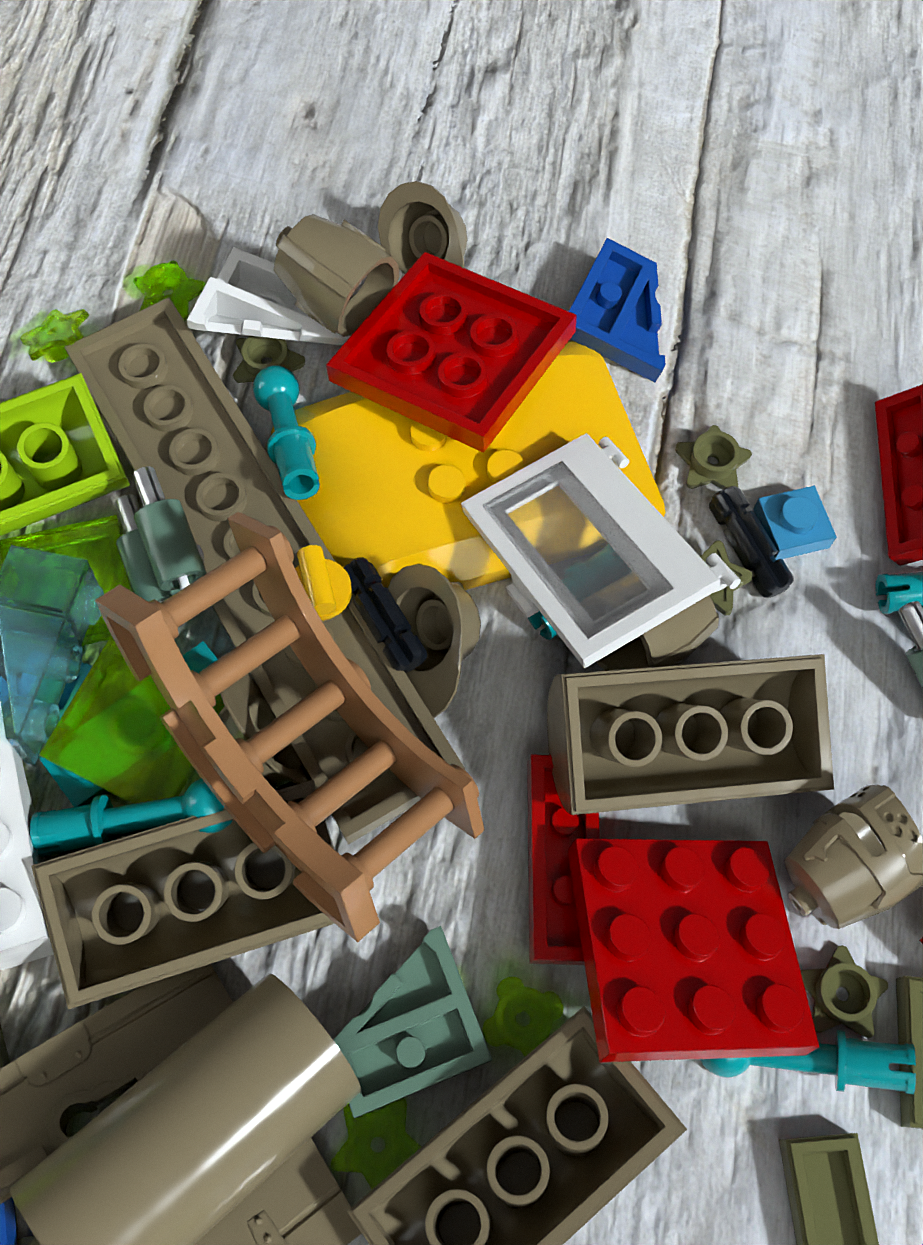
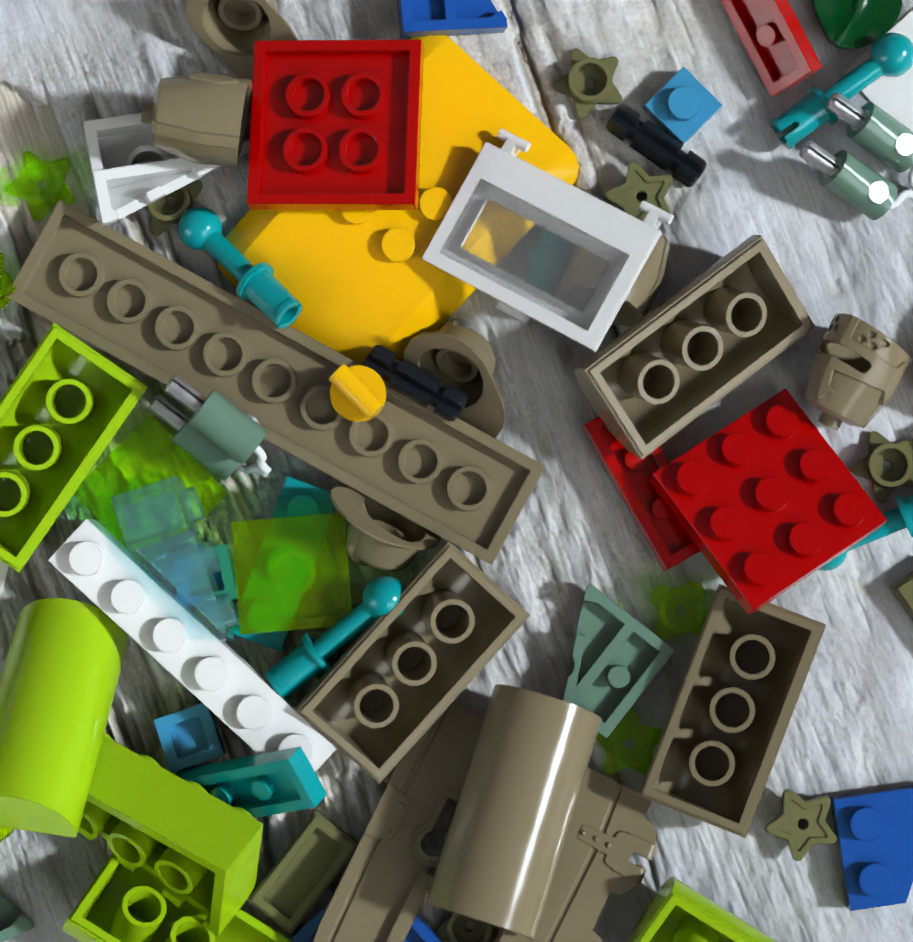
camera: 25 degrees left, 20 degrees up
(235, 767) = (397, 569): medium nougat fence -> none

